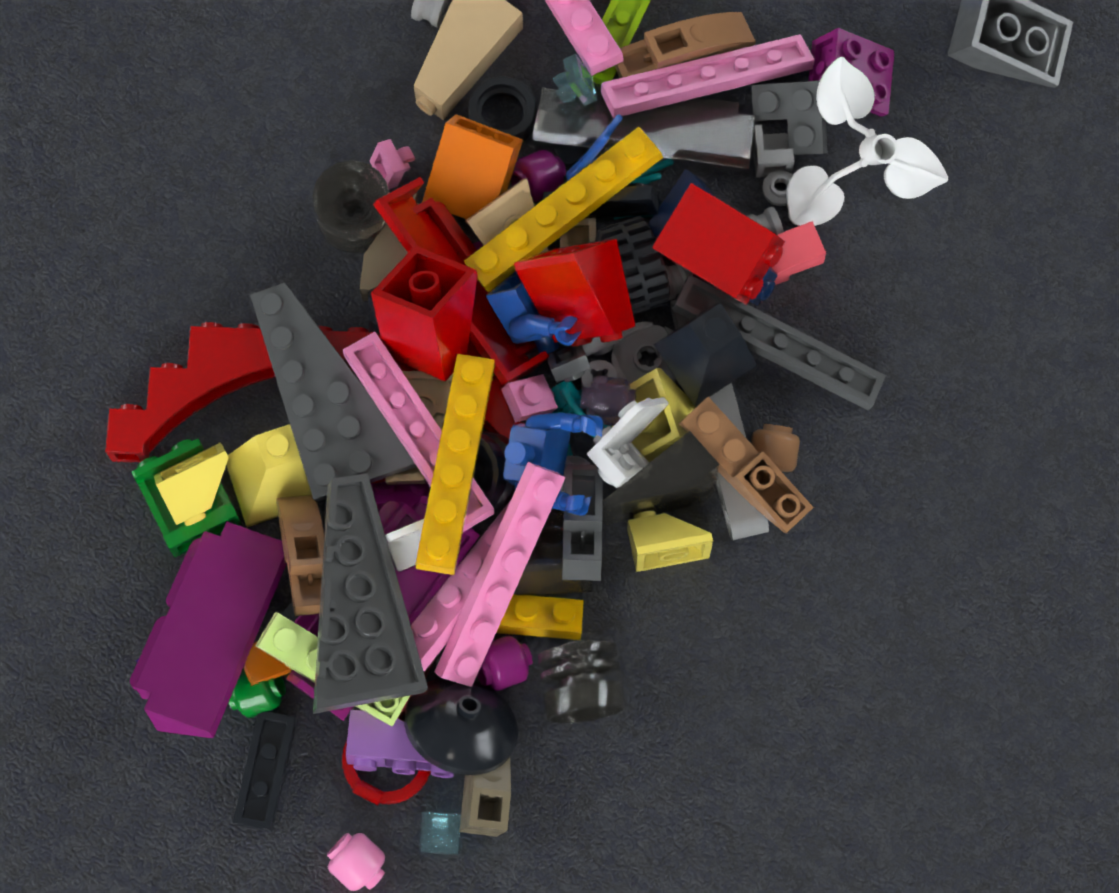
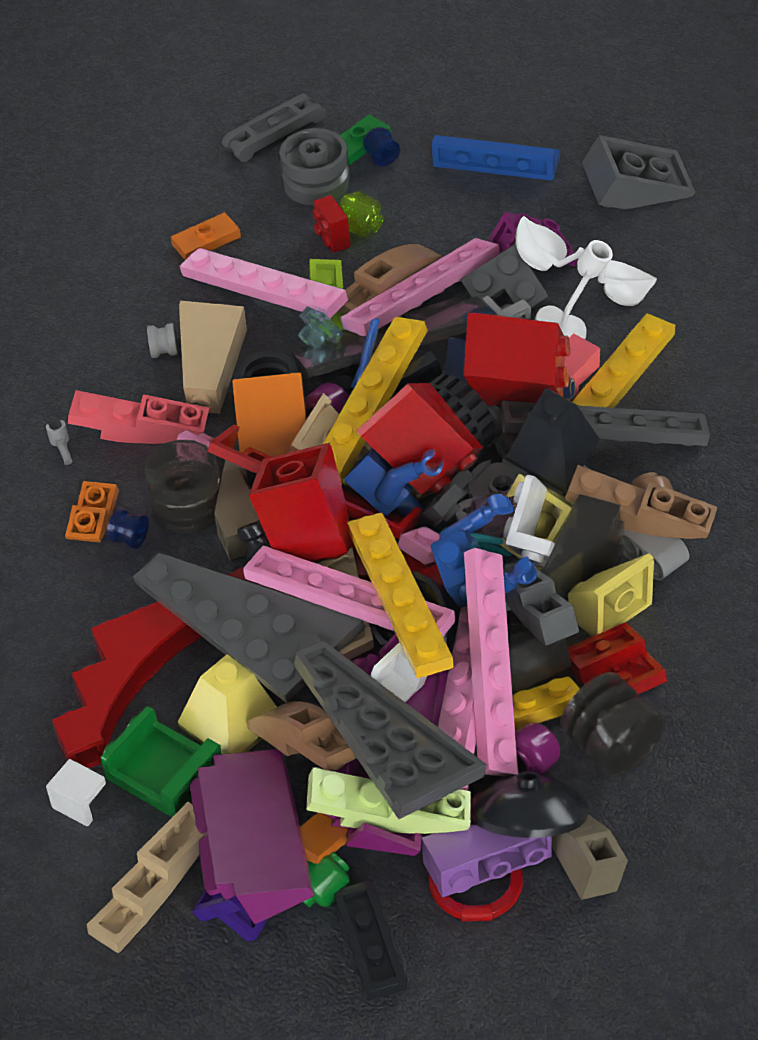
camera: 25 degrees left, 25 degrees down
(98, 488) = (73, 791): none -> white panel
(114, 614) = (150, 882): none -> tan slope
(192, 484) = (166, 736): light yellow slope -> none
(266, 182) = (92, 514): none -> orange slope
(279, 74) = (60, 438): none -> light grey hand
(285, 220) = (127, 528): none -> clear blue wheel
(356, 862) = (504, 967): bright pink head -> none
(357, 94) = (126, 421): none -> coral slope
(440, 833) = (563, 912): clear light blue tile -> none
(633, 608) = (620, 652): none -> red slope
(844, 275) = (626, 363): none -> yellow plate

